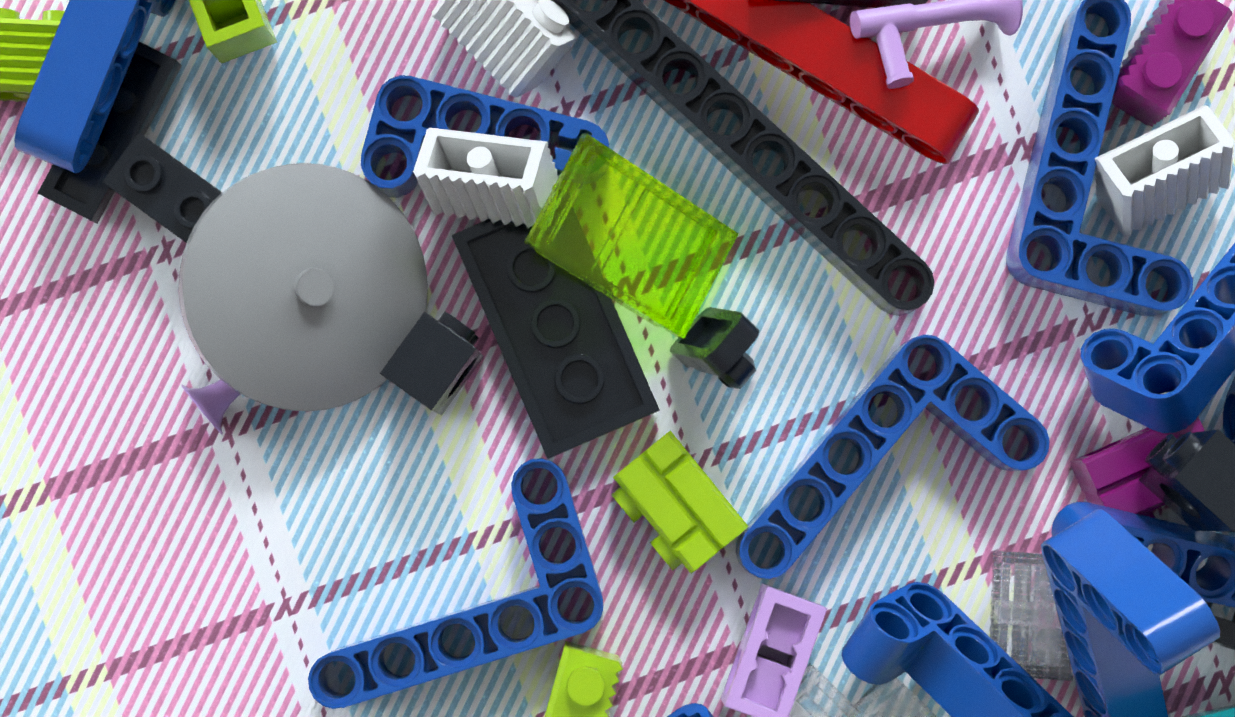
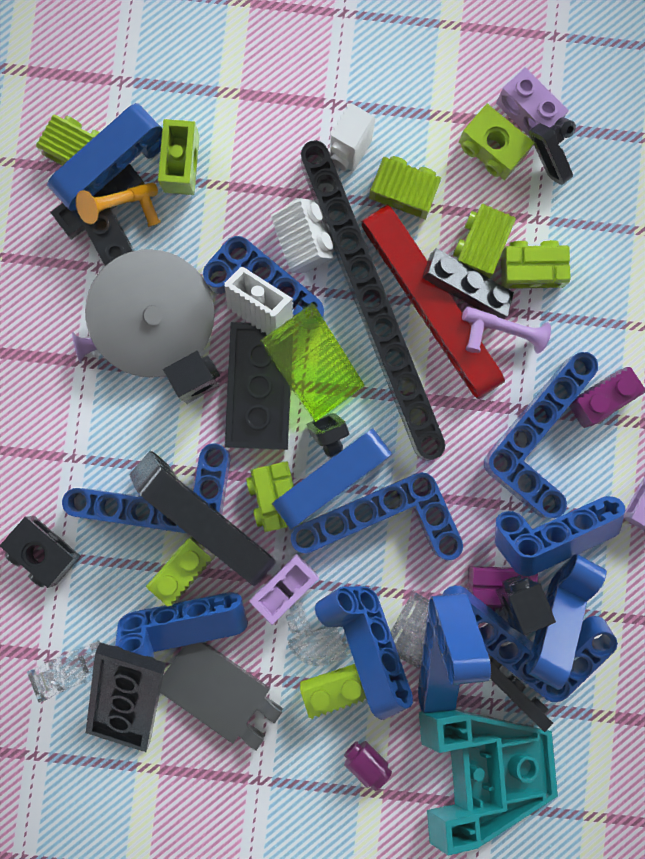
camera: 25 degrees right, 0 degrees up
(111, 151) = (90, 206): none -> light orange piece
(566, 603) = (174, 499): none -> black beam
(765, 423) = (331, 478): none -> blue beam
(1164, 170) = (578, 450): white brick -> none

